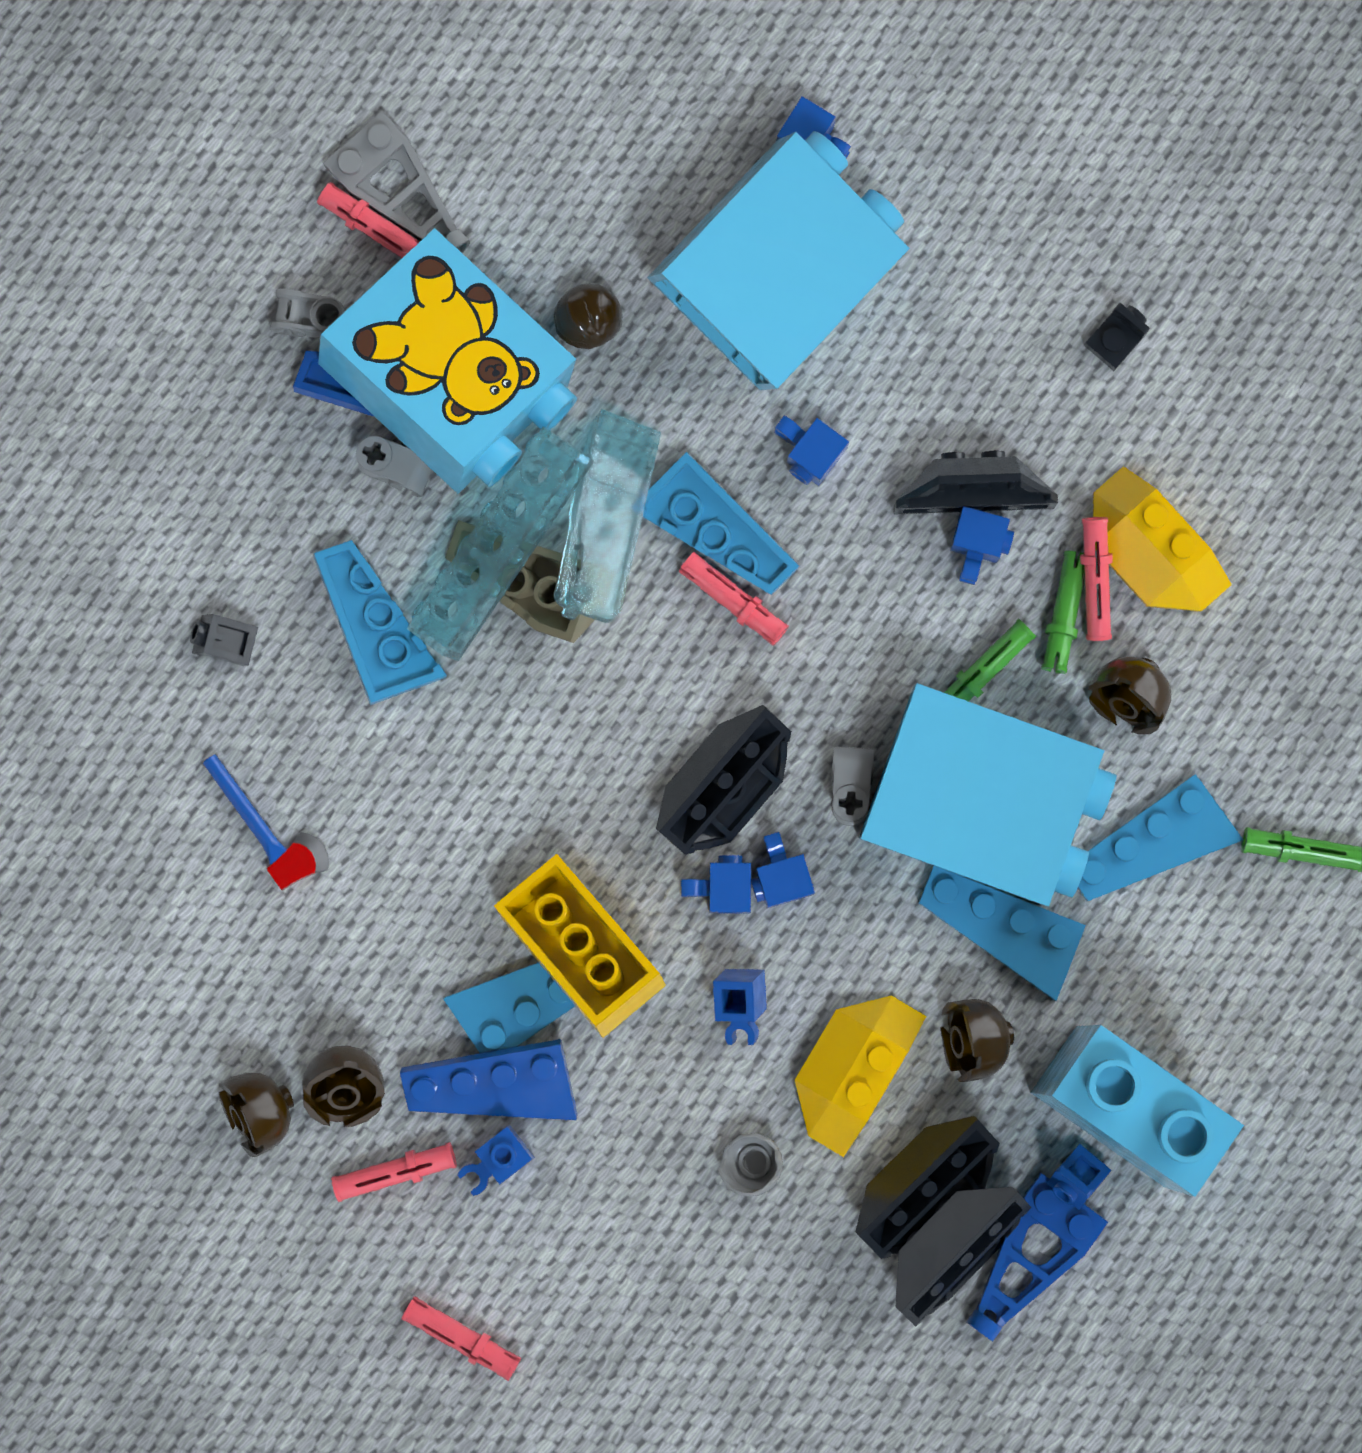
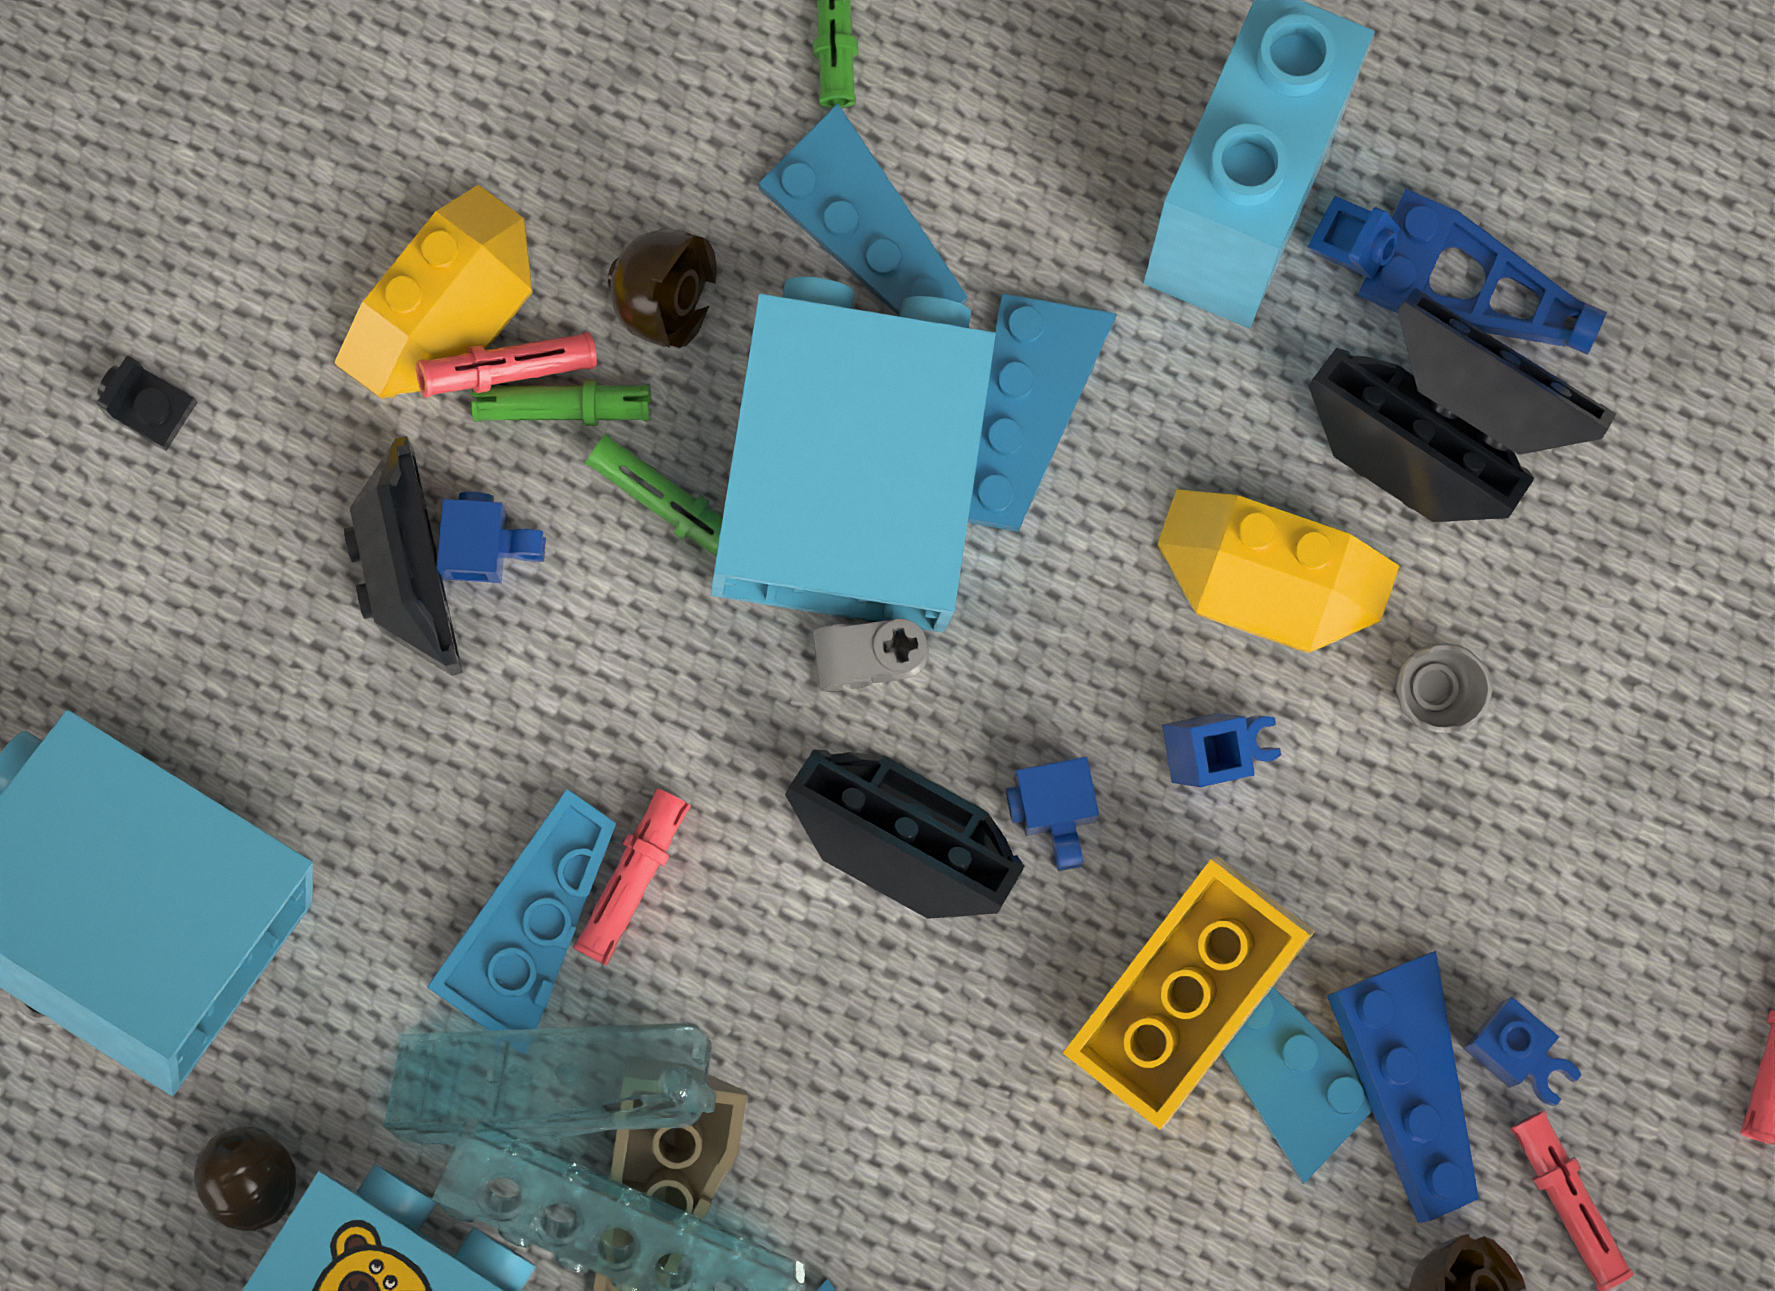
camera: 105 degrees left, 5 degrees down
(784, 878) = (1025, 722): blue brick -> none
(813, 451) = (389, 800): blue brick -> none
(977, 1039) = (1197, 410): dark brown cylinder -> none

